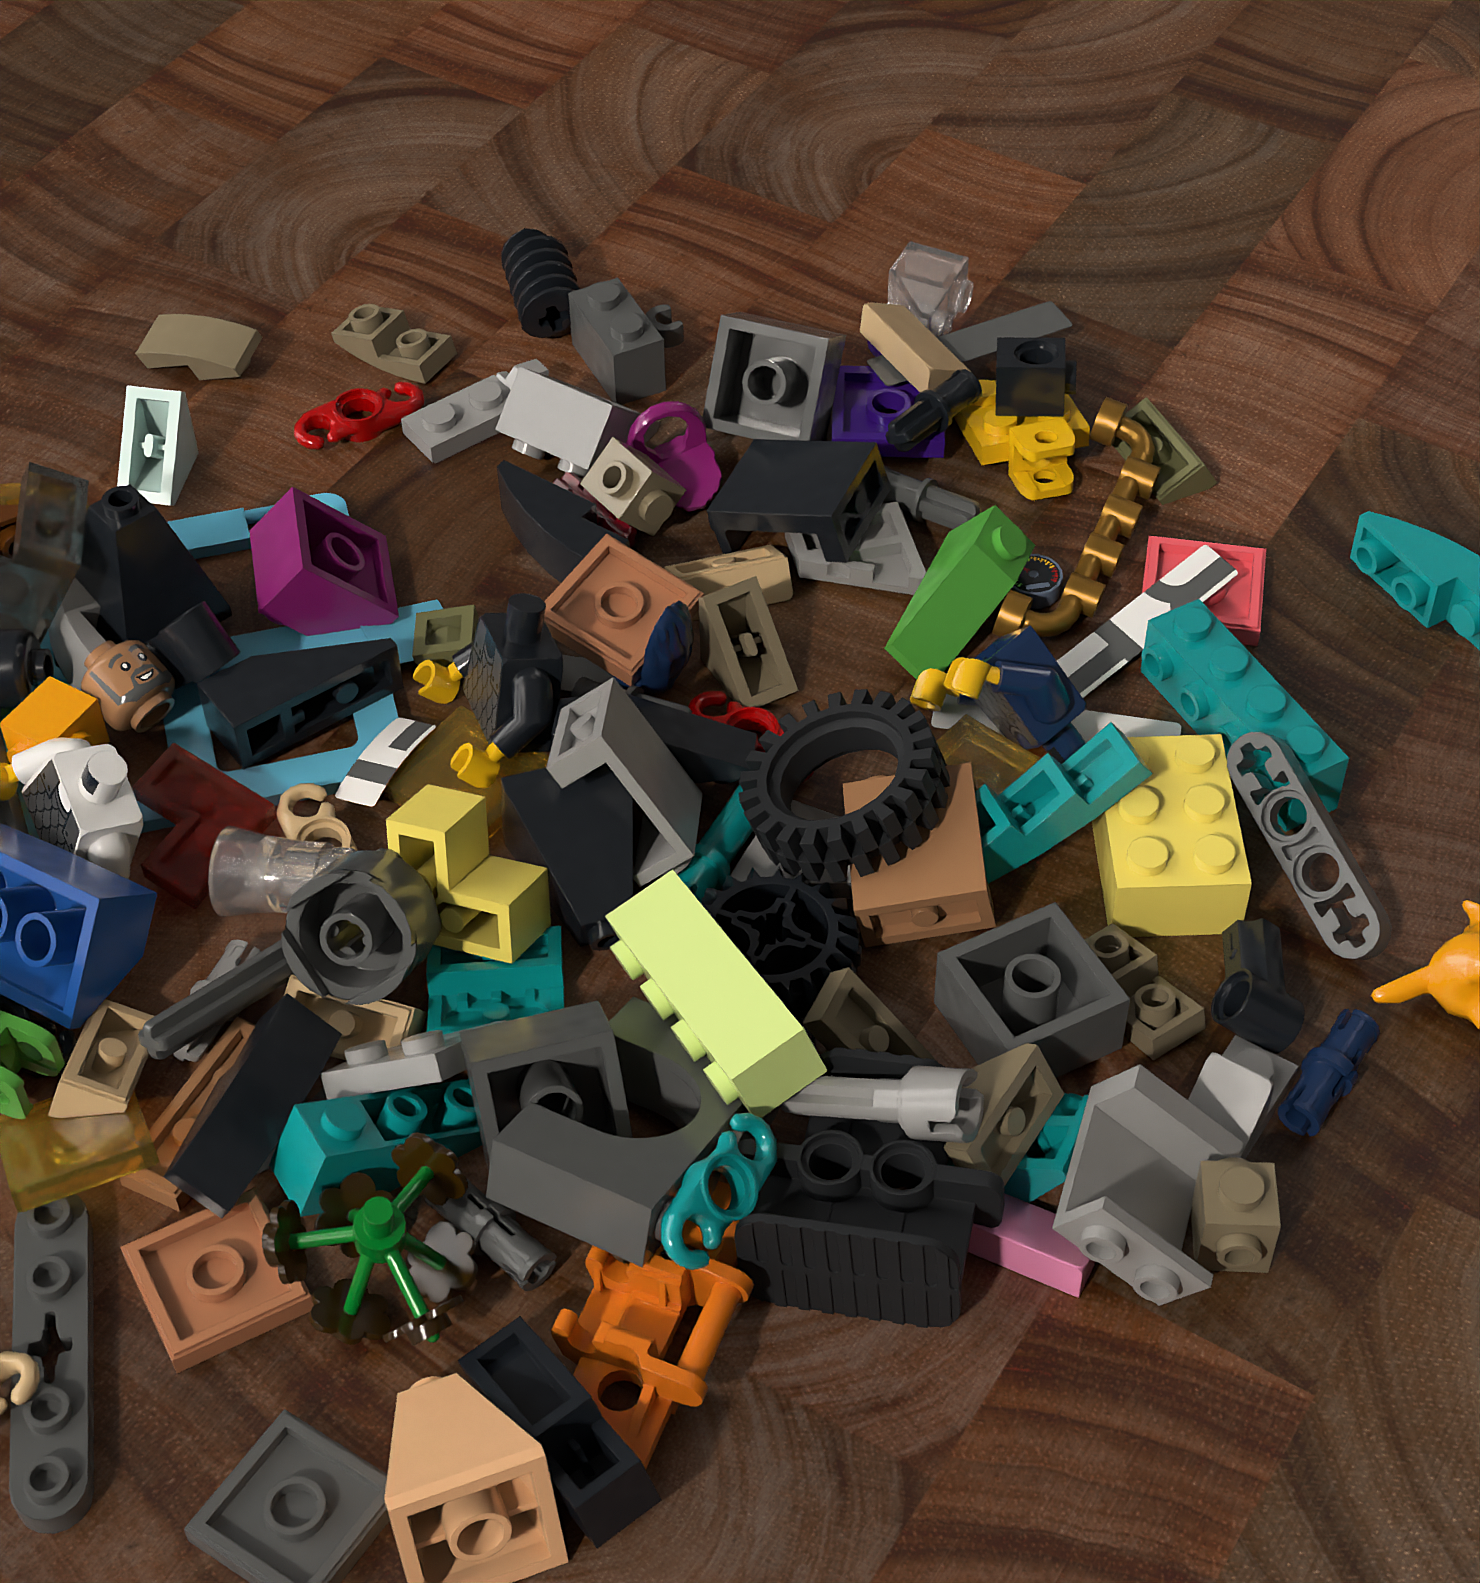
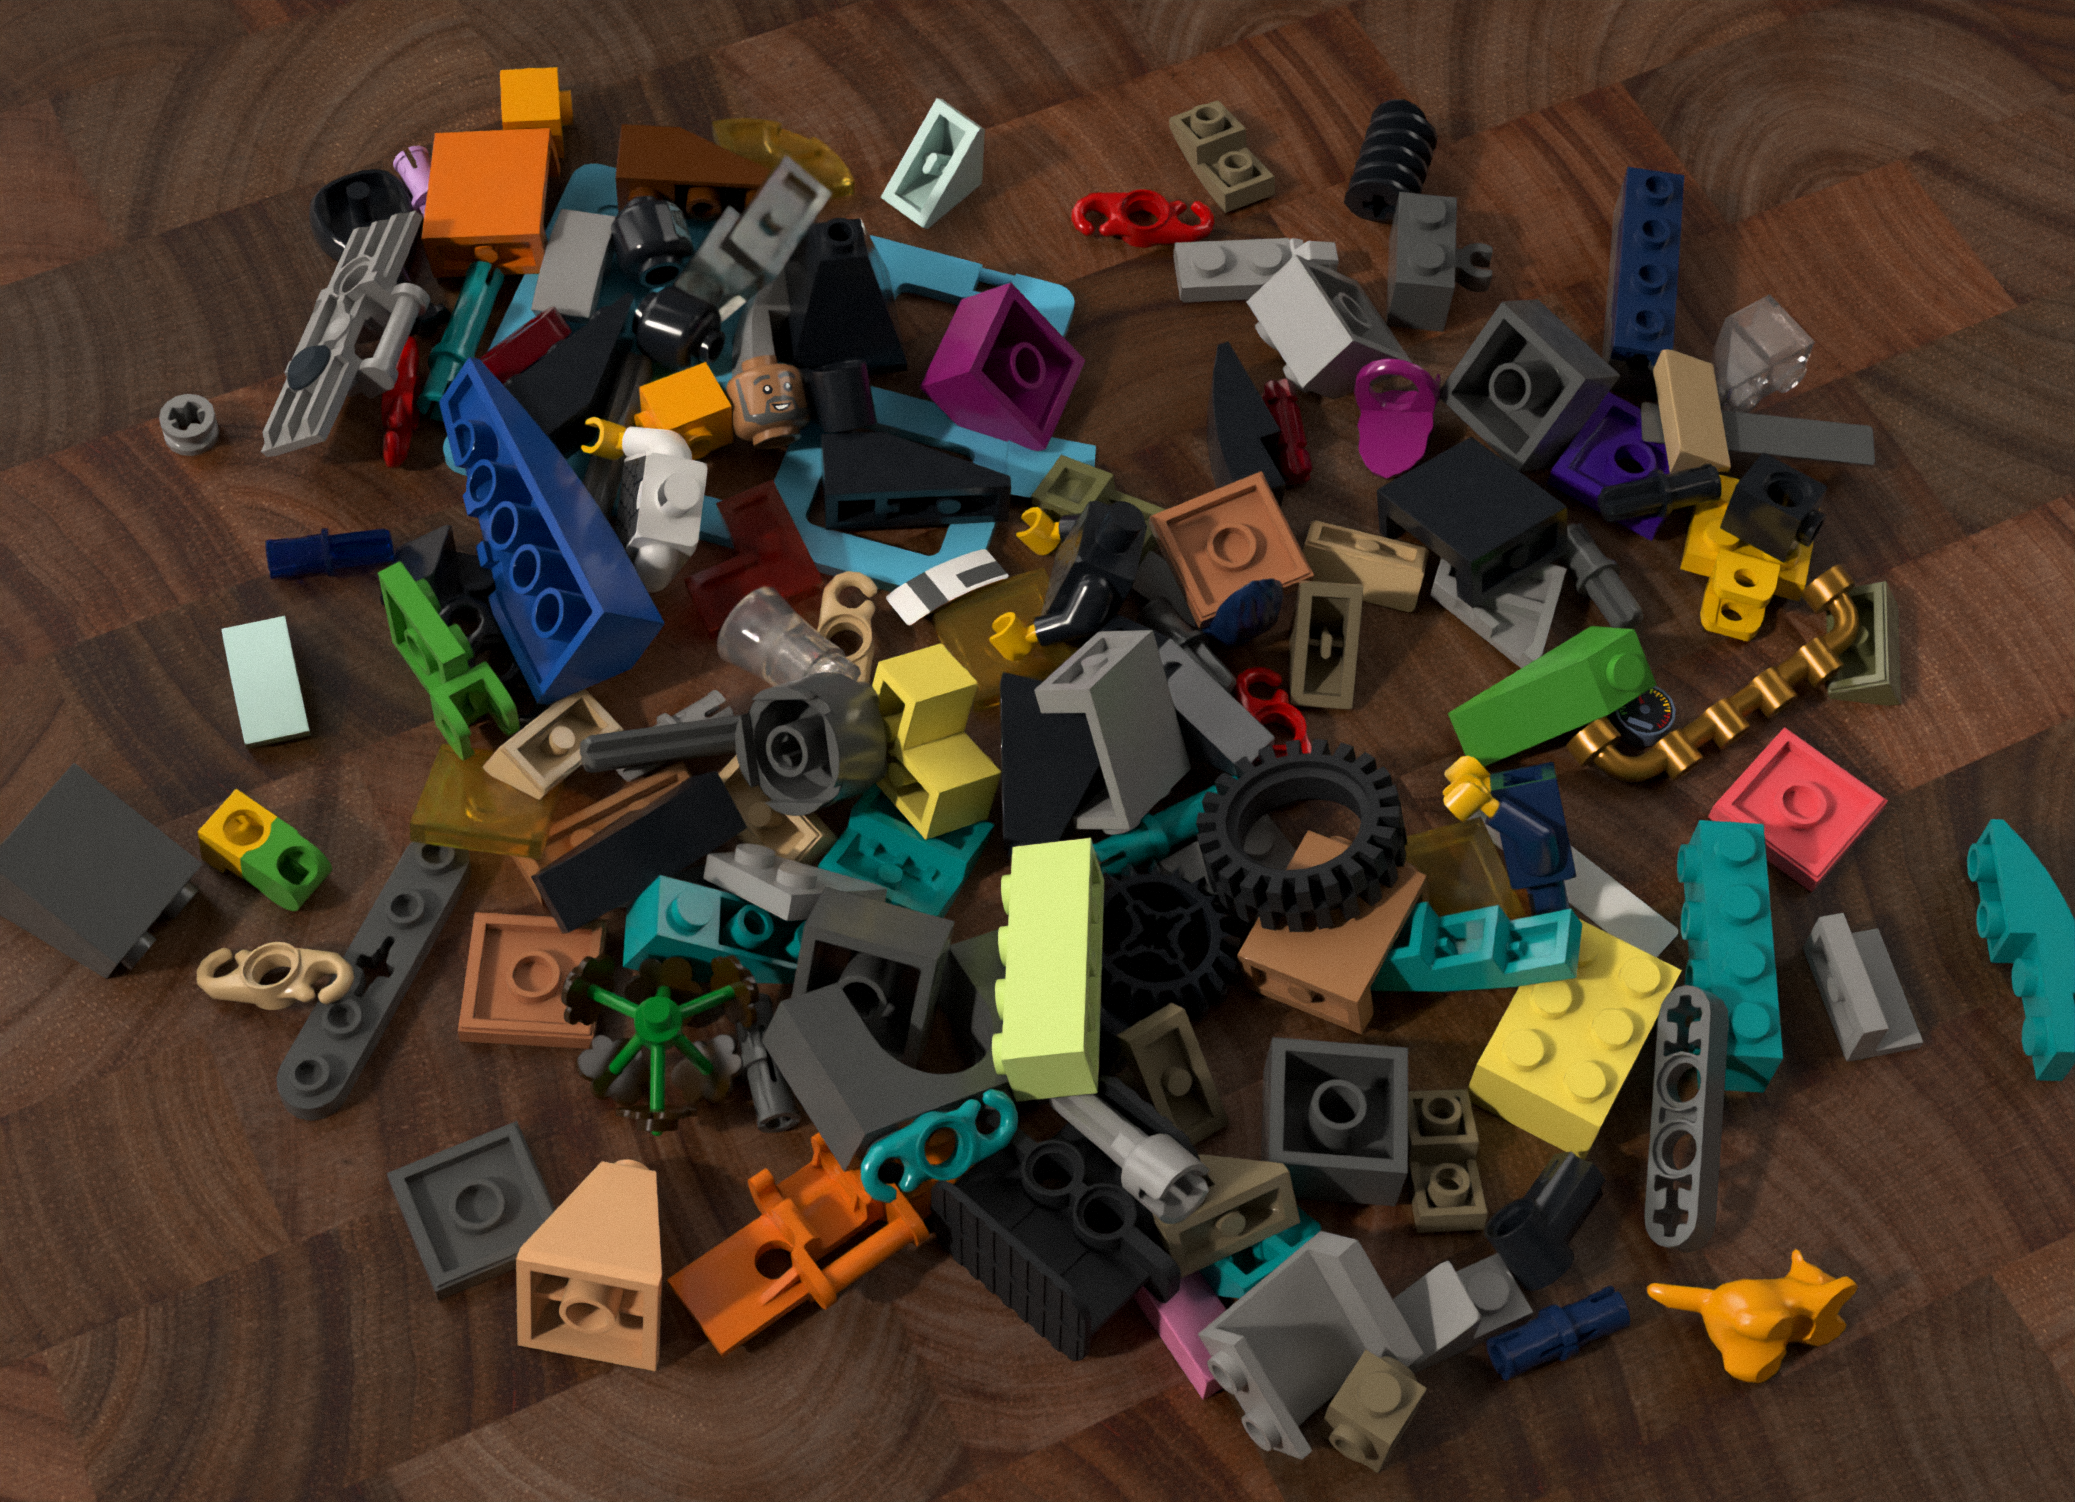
camera: 25 degrees right, 10 degrees up
(204, 343) = (1044, 71): dark tan slope -> none
(587, 1461) = (701, 1266): black slope -> none
(643, 493) = (1330, 428): dark tan brick -> none
(799, 270) = (1643, 276): none -> dark blue piece
(1125, 633) = (1675, 817): sticker -> none
(1349, 693) = (1860, 990): none -> light grey panel

